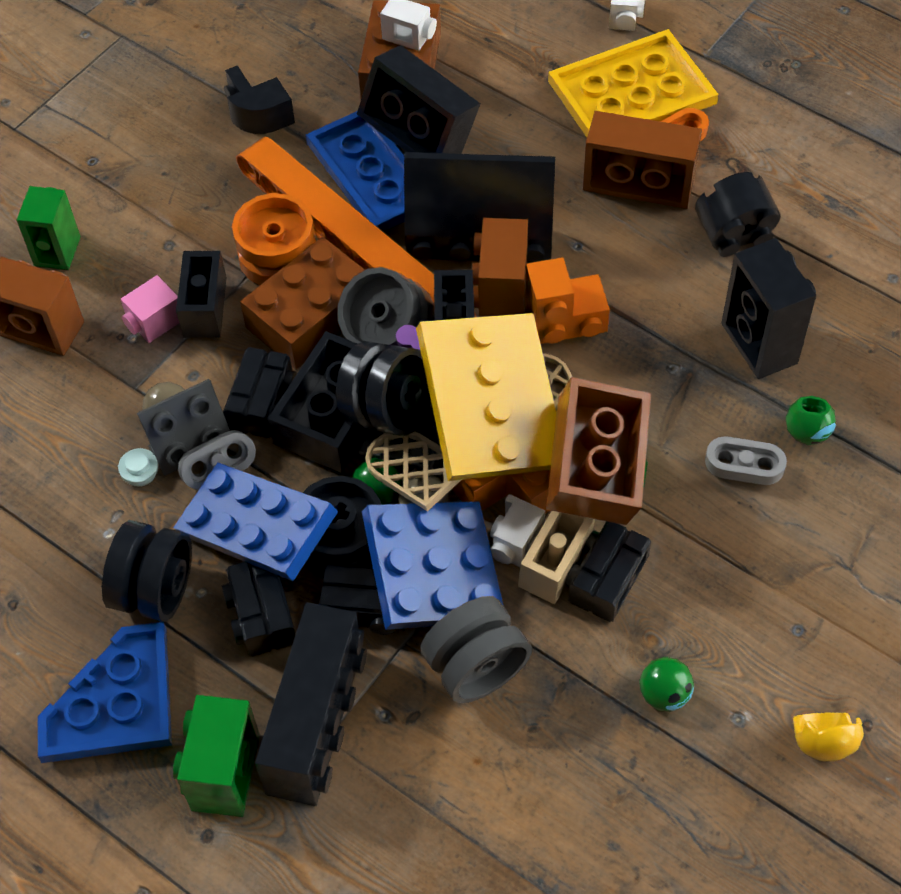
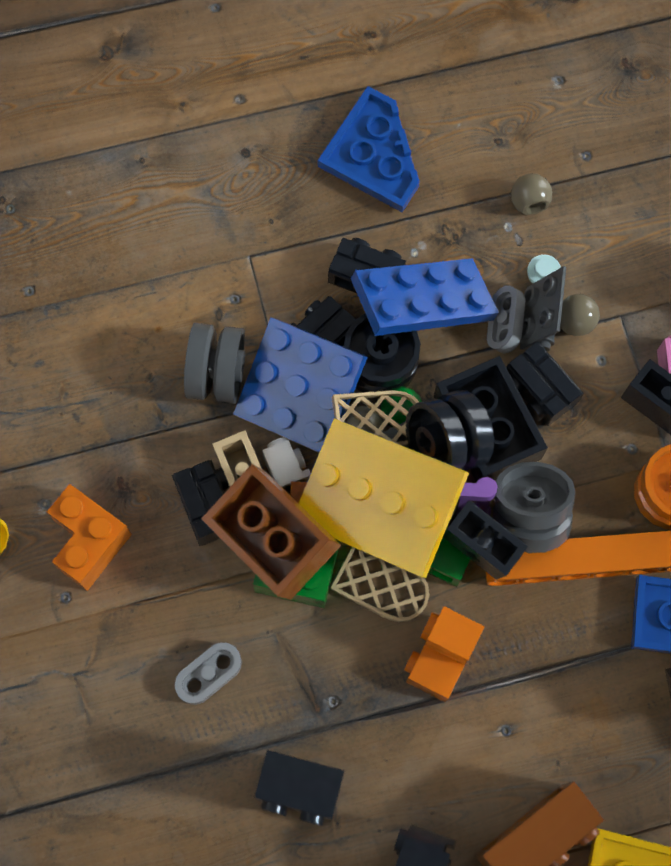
camera: 125 degrees right, 15 degrees up
(61, 523) = (531, 194): none -> dark tan piece
(146, 570) = (442, 211): black wheel -> none
(217, 755) = (276, 170): green brick -> none
(300, 301) = (604, 469): dark orange brick -> none
(311, 705) = (264, 244): black brick -> none
(454, 192) = (577, 649): black slope -> none
(501, 267) = (512, 624): dark orange brick -> none
(666, 684) = (99, 471): green piece -> none
(731, 632) = (94, 540): none -> orange brick
(810, 420) = (195, 747): green piece -> none

